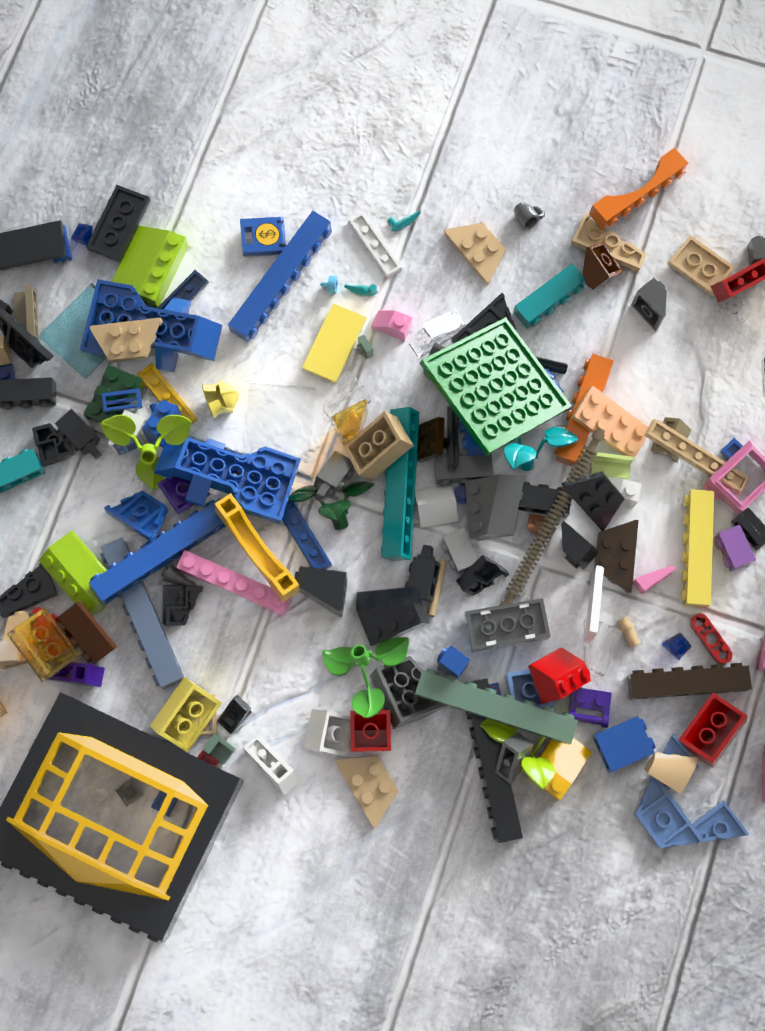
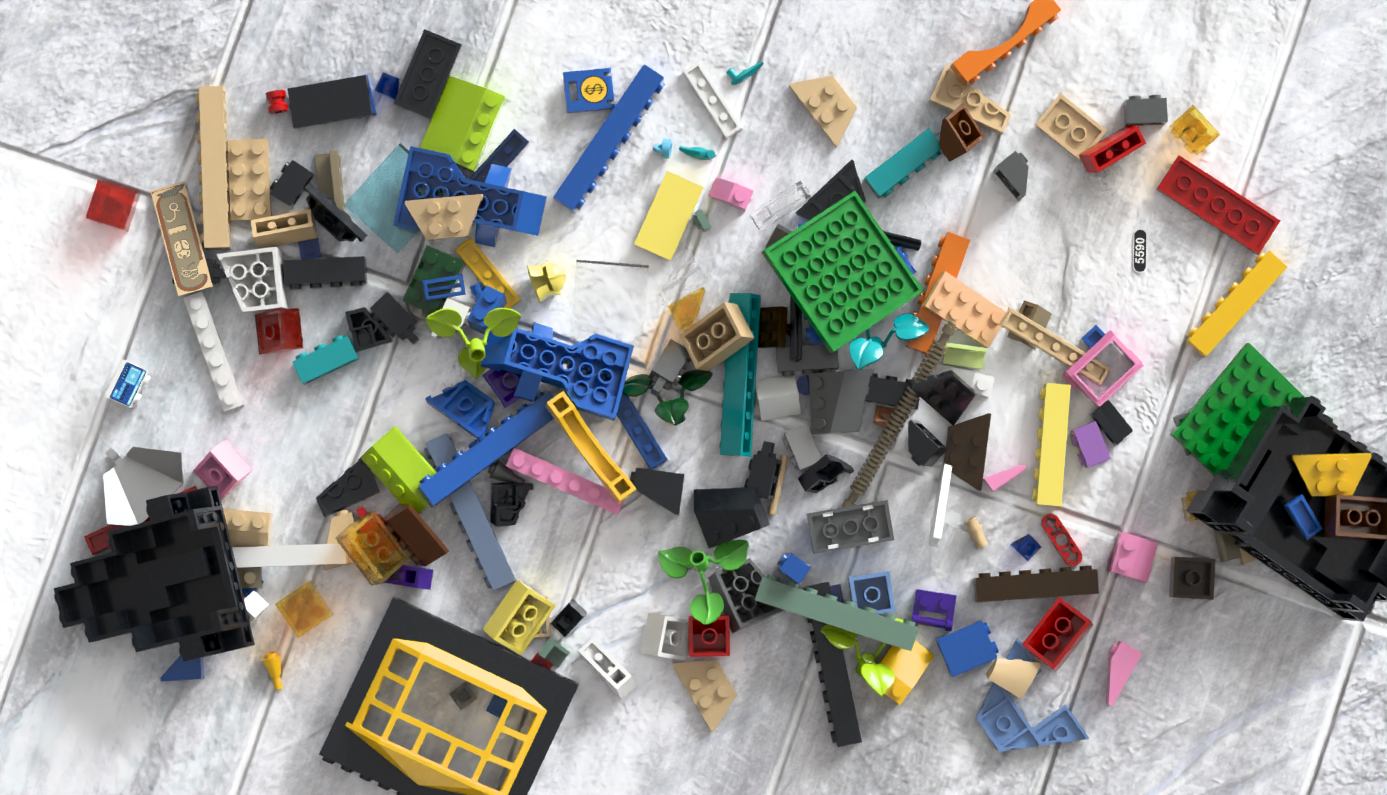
camera: 10 degrees left, 10 degrees up
(511, 756) = (851, 662): dark grey slope -> none
(528, 215) = (881, 68): dark grey piece -> none
(558, 675) = (901, 579): red slope -> none

